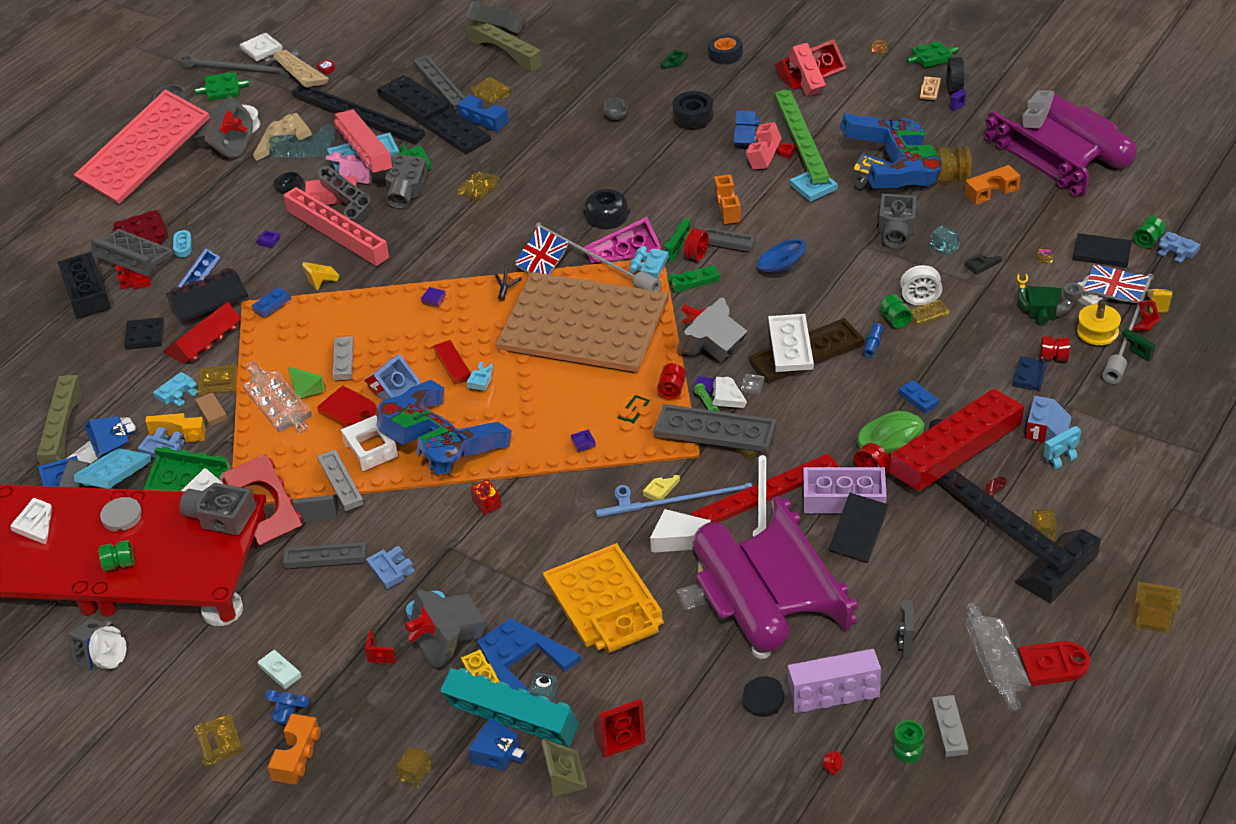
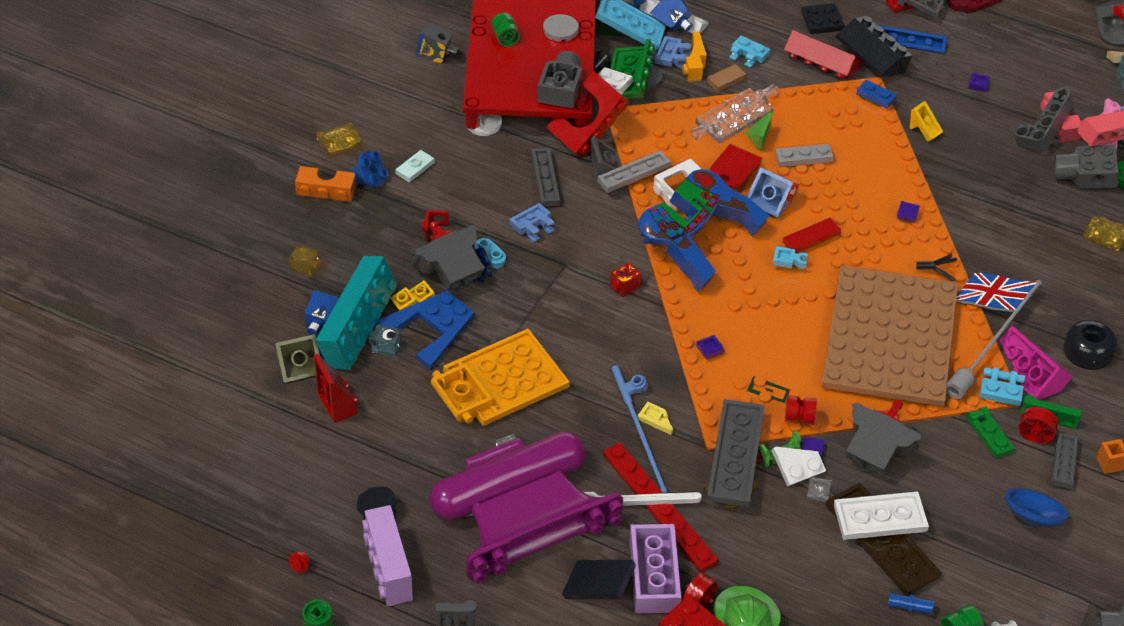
camera: 80 degrees right, 5 degrees up
(107, 647) = (426, 53): white tile -> none
(182, 243) = (954, 21): medium azure plate -> none
(217, 375) = (768, 71): clear yellow plate -> none
(288, 181) = (1070, 80): black hat -> none
(336, 226) = (1000, 124): coral brick -> none
(675, 531) = (591, 427): white slope -> none

